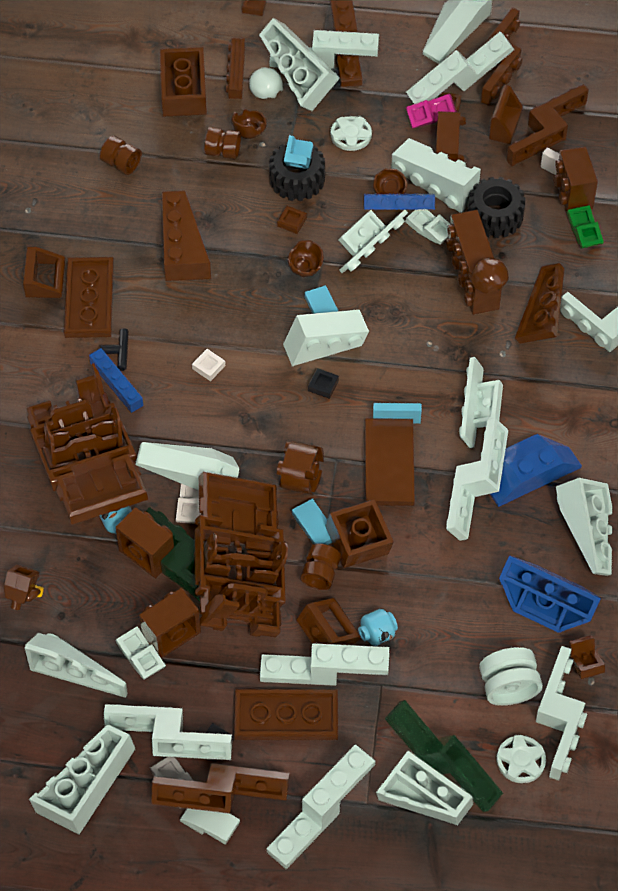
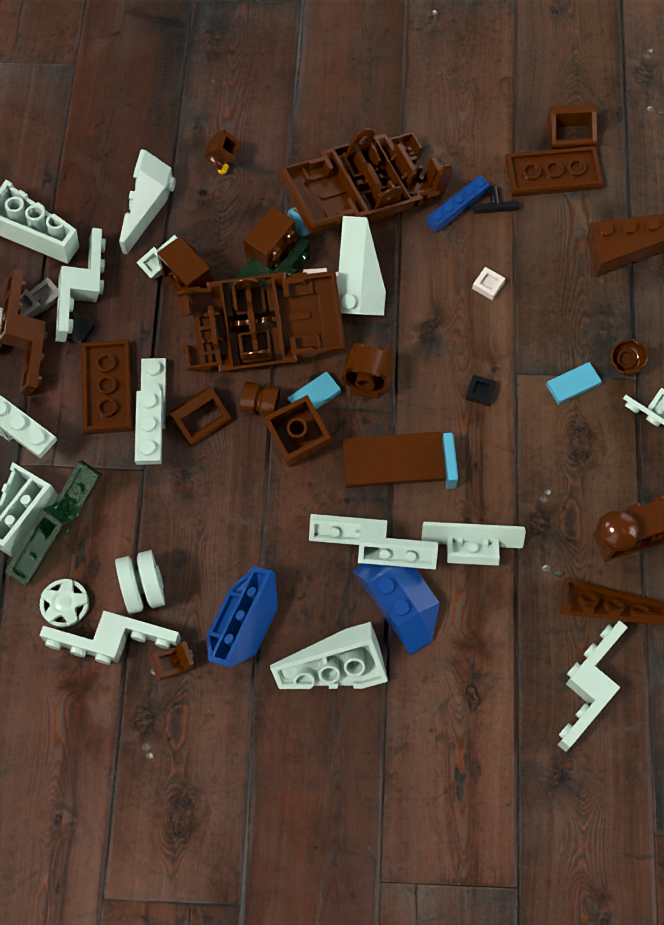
camera: 85 degrees right, 10 degrees up
(324, 334) = (535, 384): light aqua wedge -> none
(378, 627) = (198, 458): medium azure head -> none

